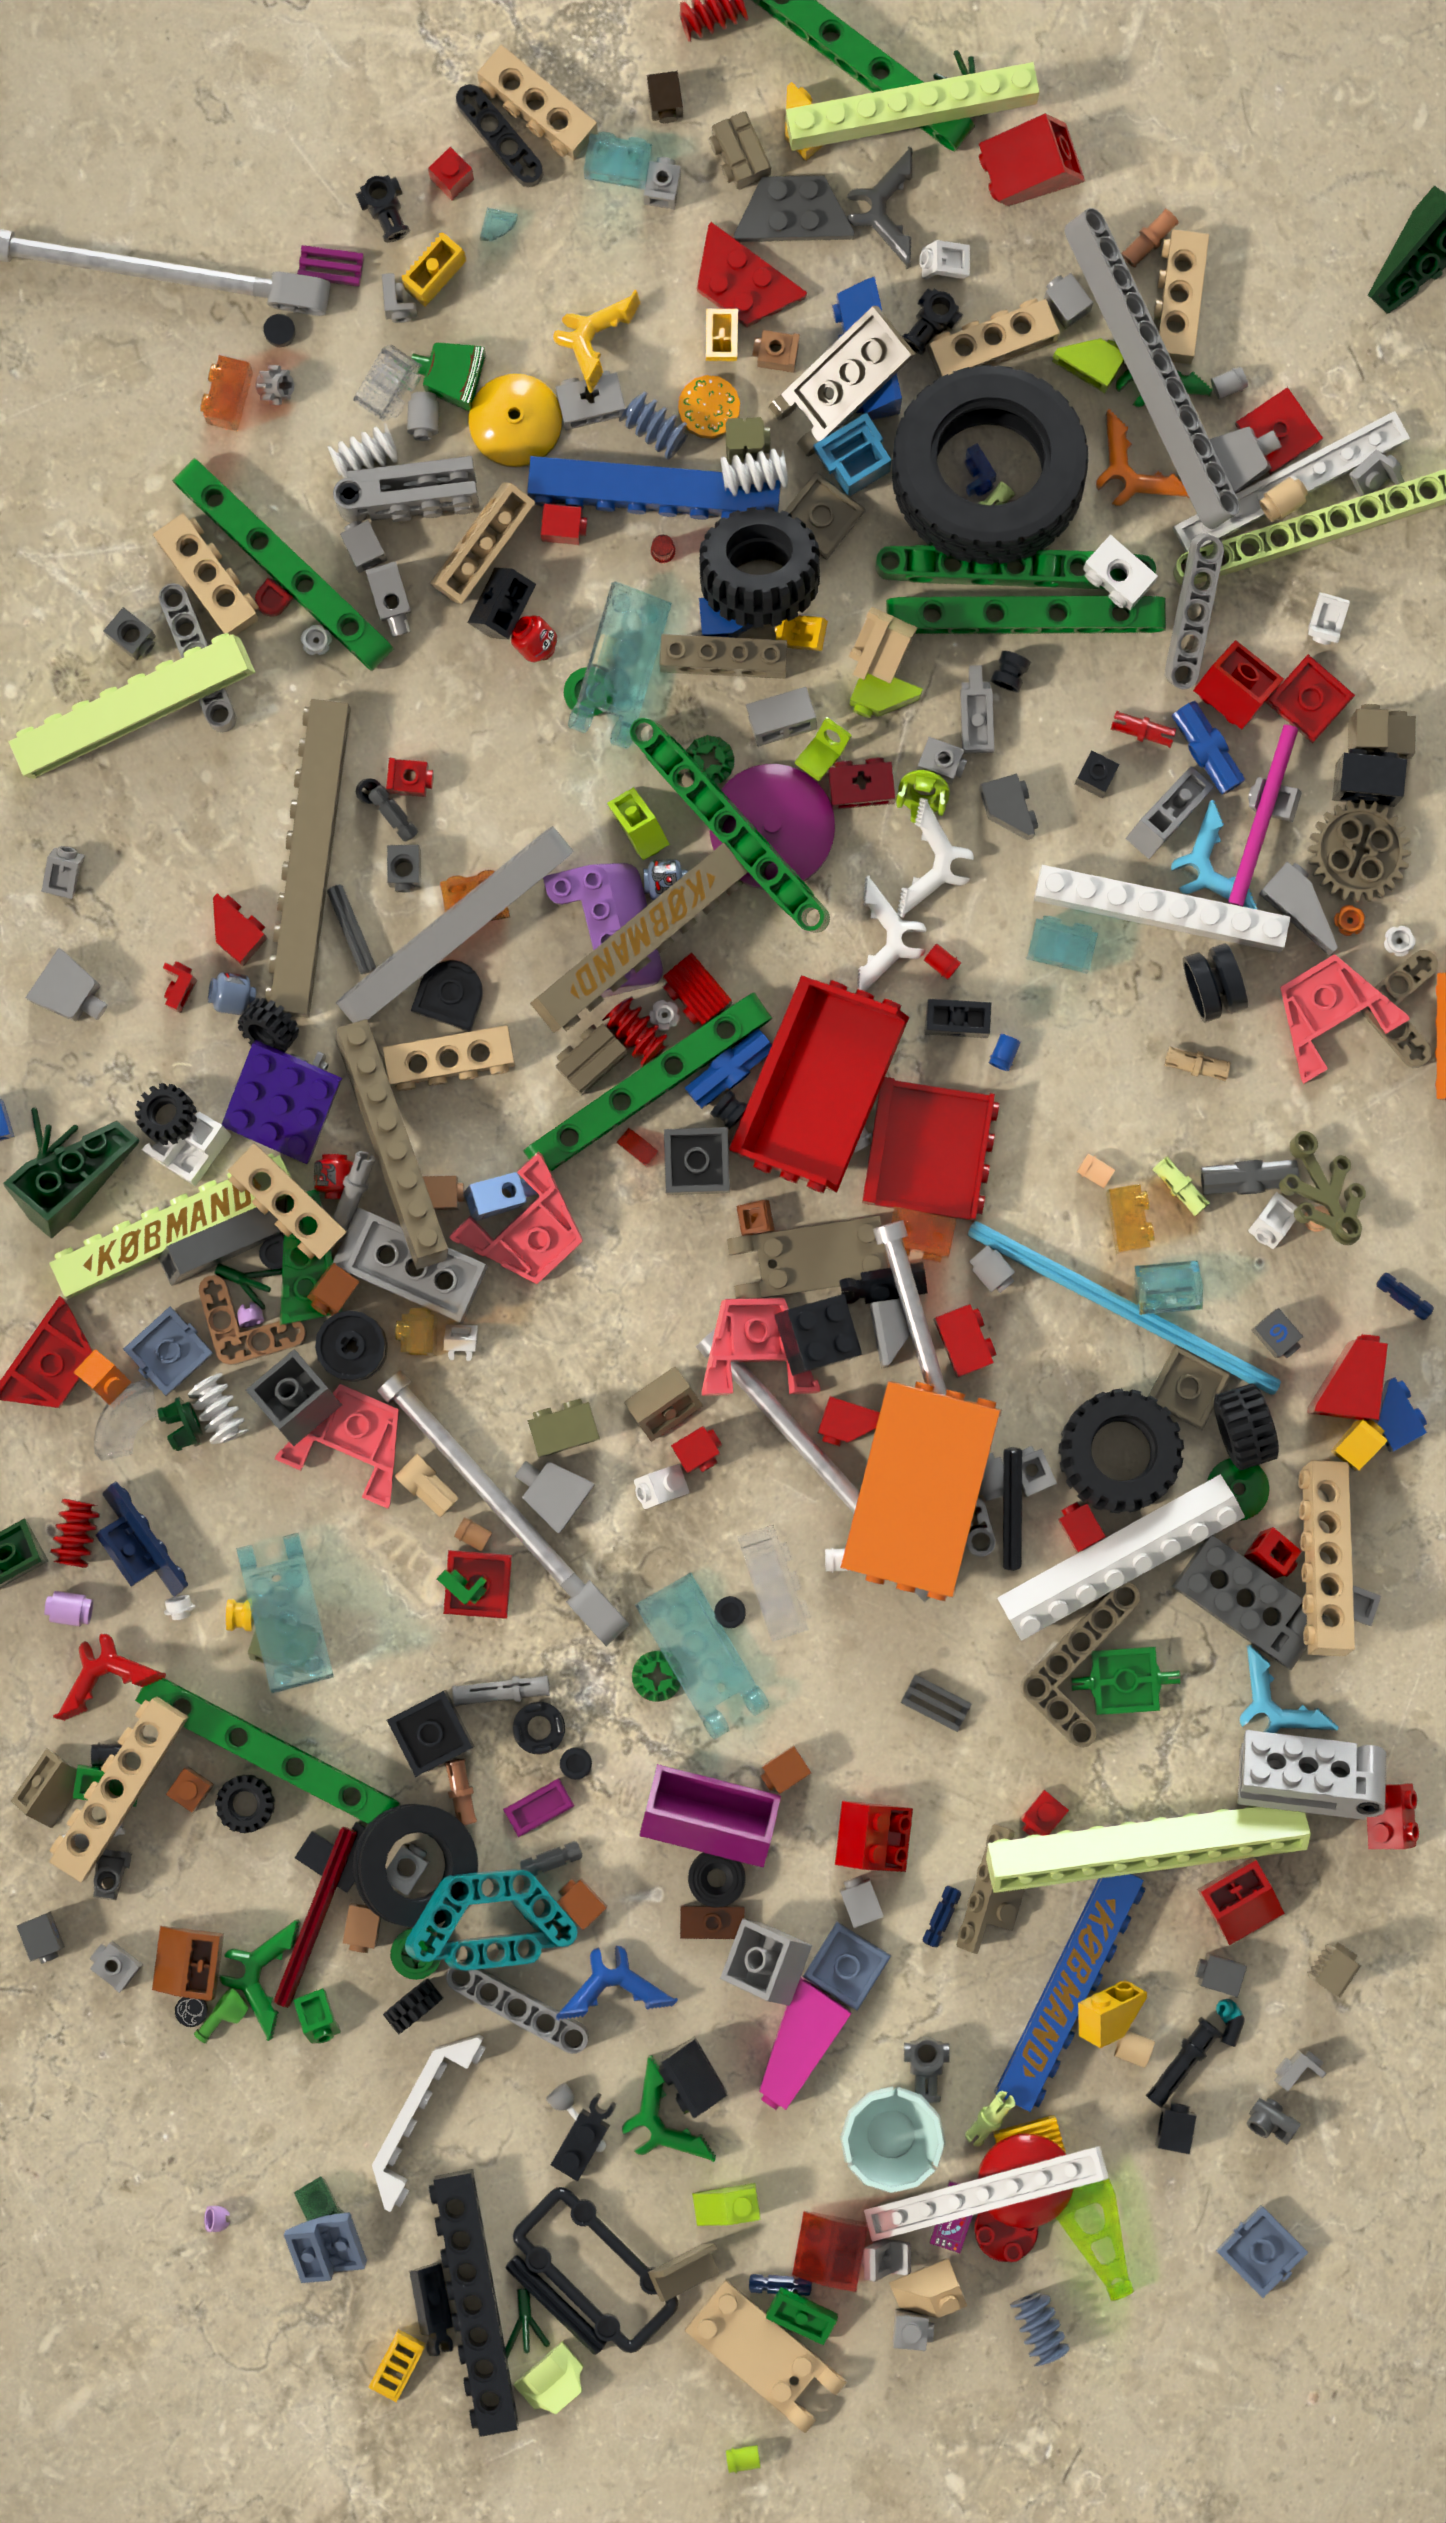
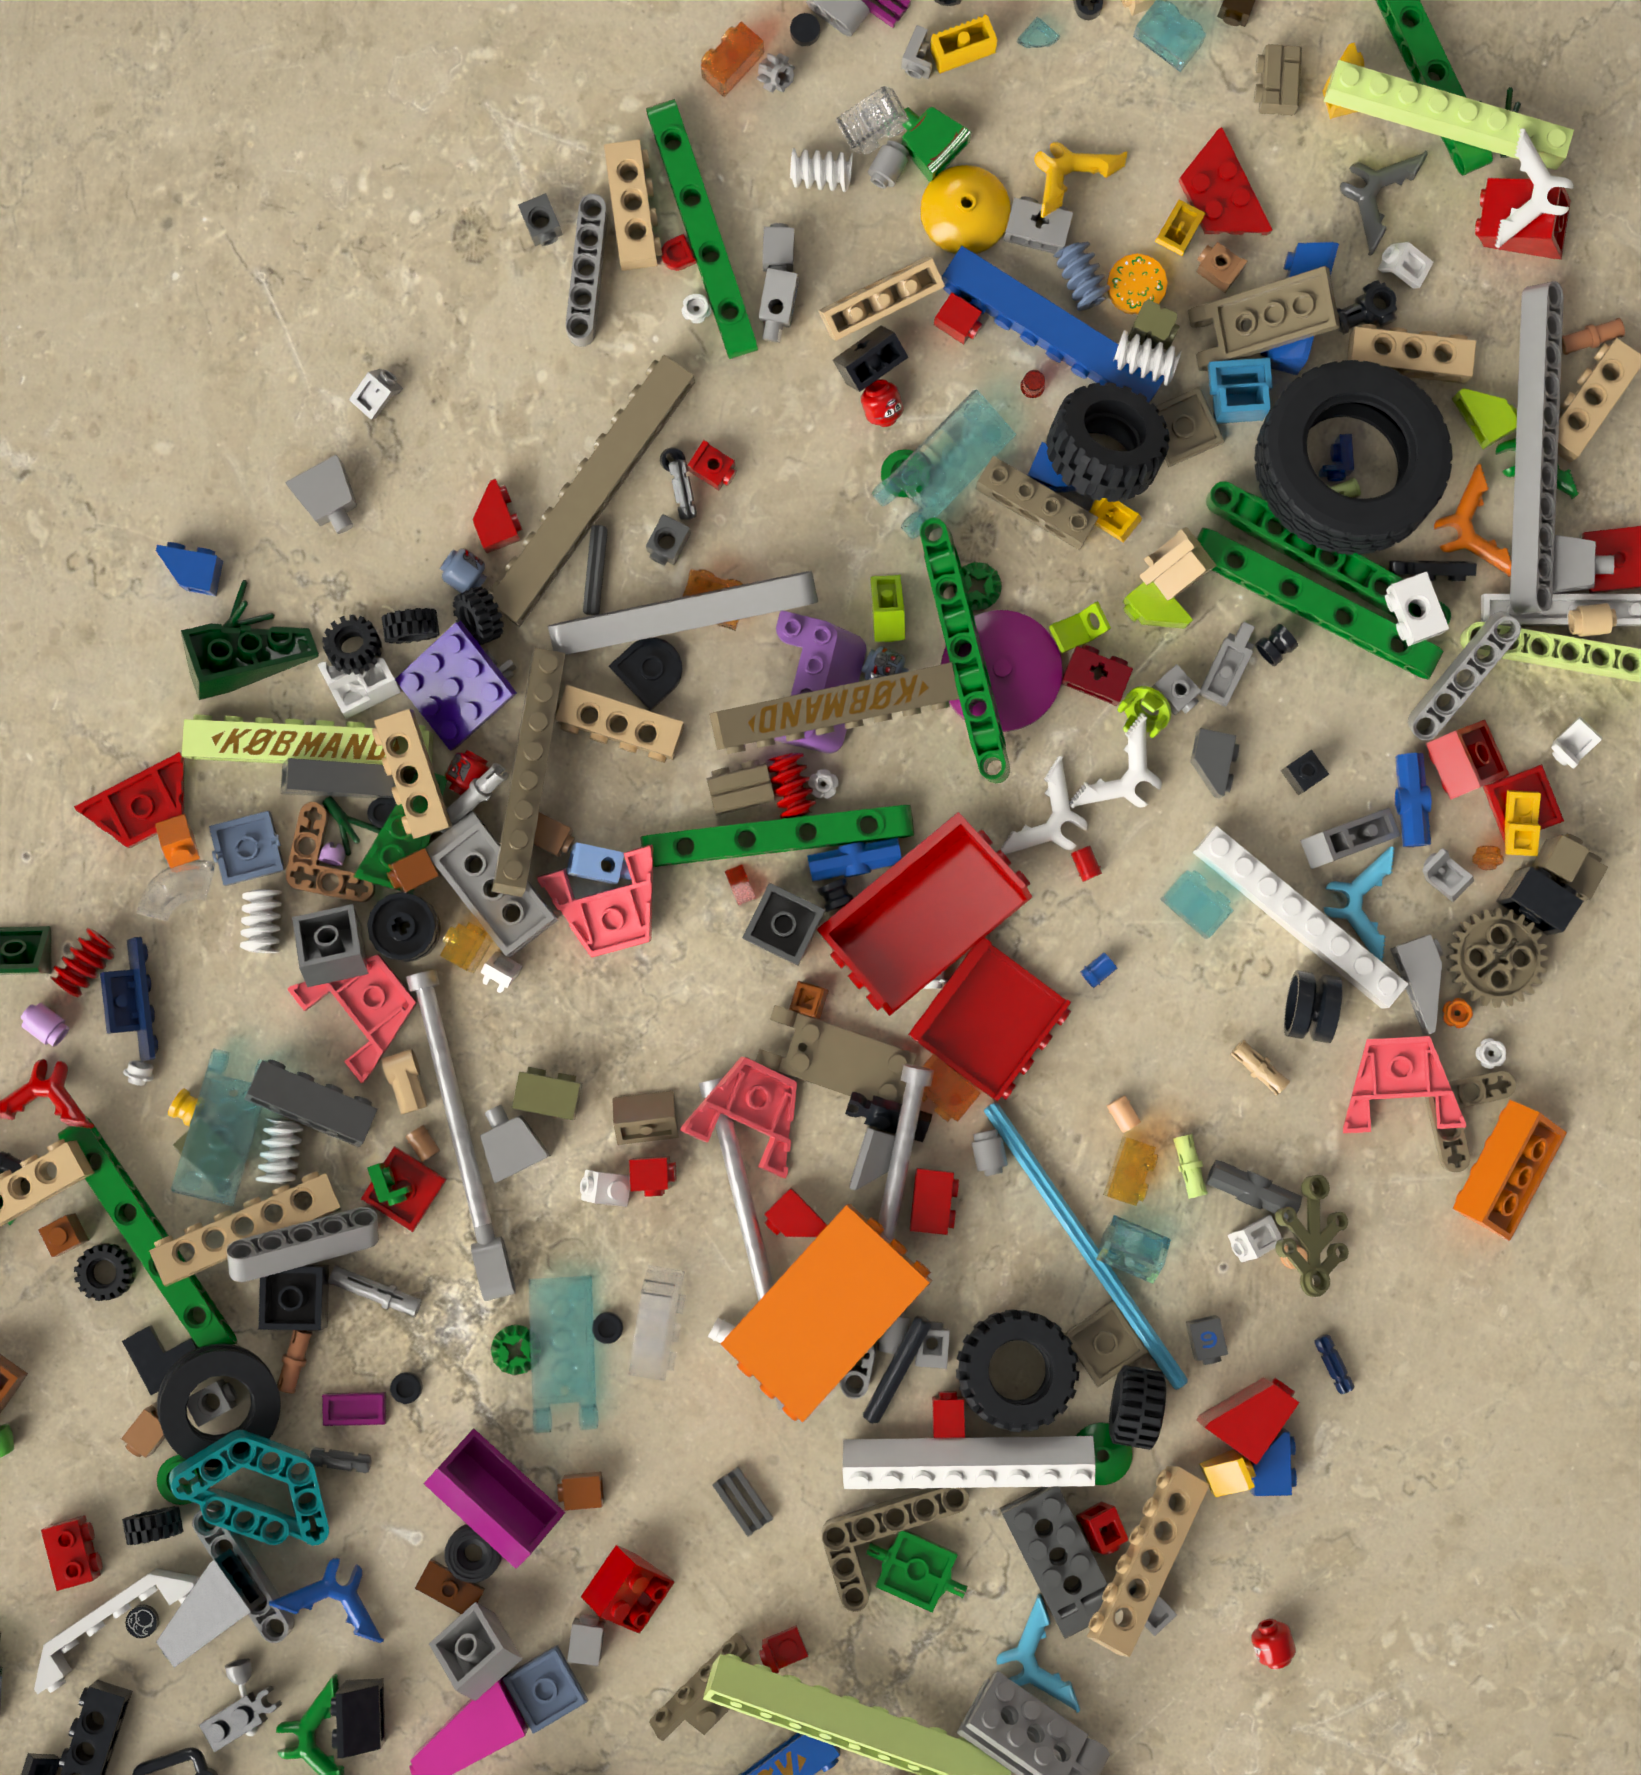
camera: 25 degrees right, 0 degrees up
(131, 706) = (507, 280): yellowish green brick -> none
(179, 991) = (420, 546): red bracket -> none
(187, 1434) = (231, 917): dark green piece -> none
(210, 1068) = (410, 625): none -> black tyre
(254, 1962) = (38, 1413): green piece -> none
(310, 1763) = (173, 1269): none -> tan brick
(315, 1917) = (111, 1402): dark red axle -> none
(316, 2017) = (67, 1488): green bracket -> none
(347, 1609) = (280, 1151): none -> white piece
(352, 2071) = (72, 1552): none -> red brick
(353, 1549) = (311, 1103): none -> dark grey brick
(408, 490) = (841, 220): light grey hinge -> none
(414, 1679) = (302, 1244): none -> light grey beam
(448, 2100) = (142, 1621): none -> black tile
(506, 2049) = (213, 1605): none -> slope
(521, 1733) = (376, 1351): black piece -> none
(581, 1902) = (345, 1512): dark orange brick -> none
(659, 193) = (1192, 81): light grey brick -> none
(696, 990) = (861, 777): red brick -> none
(781, 716) = (1059, 580): light grey hinge -> none
(793, 211) = (1297, 155): dark grey wing -> none
(818, 1334) = (808, 1130): black brick -> none
(941, 1916) = (649, 1689): dark blue axle -> none
(958, 1018) = (1074, 920): black brick -> none
(1036, 146) = (1538, 204): none -> white piece
(1067, 300) = (1494, 352): light grey brick -> none
(1137, 518) = (1453, 569): none -> black plate
(1143, 729) = (1365, 754): red pin -> none
(1229, 383) = (1596, 496): light grey piece -> none
(1263, 815) = (1430, 883): dark pink piece -> none
(1303, 764) = (1488, 857): none -> clear orange plate
(1317, 716) = (1521, 823): none -> yellow slope

